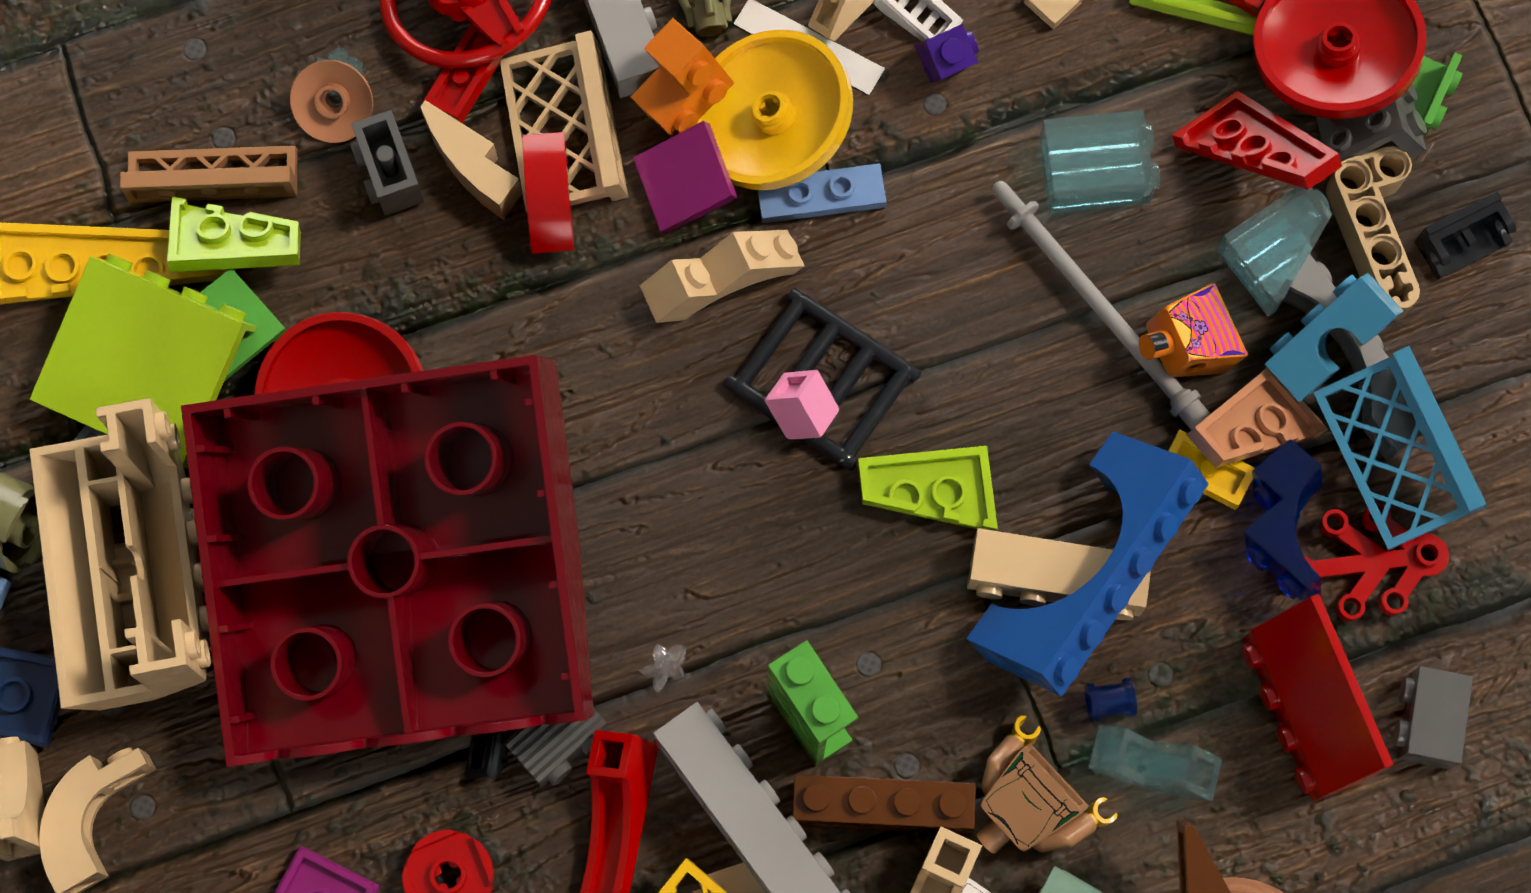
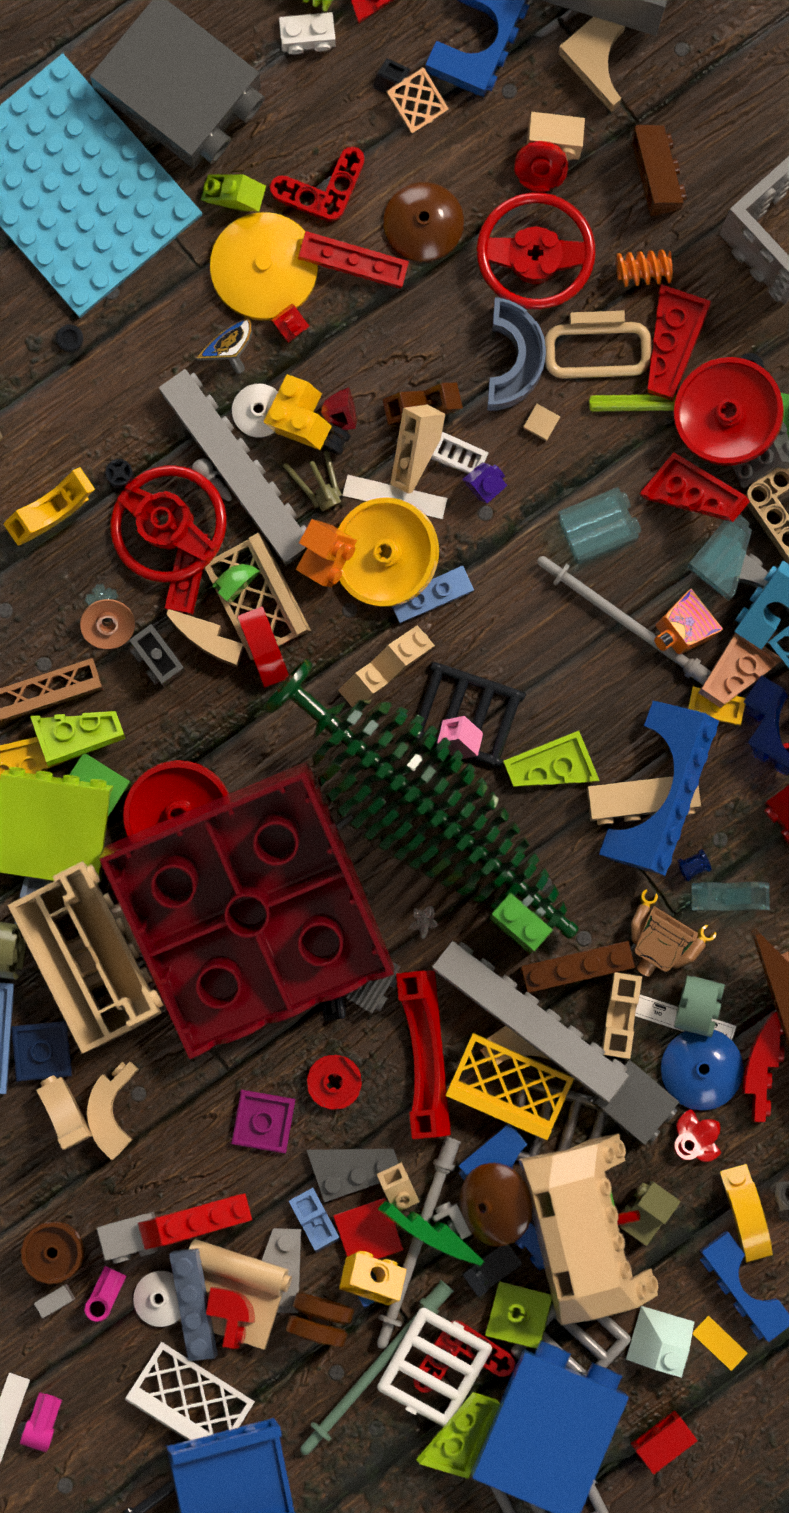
camera: 20 degrees left, 10 degrees up
(537, 92) = (235, 580): none -> bright green brick
(685, 177) = (344, 611): magenta tile -> none
(694, 445) = (421, 803): none -> dark green plant

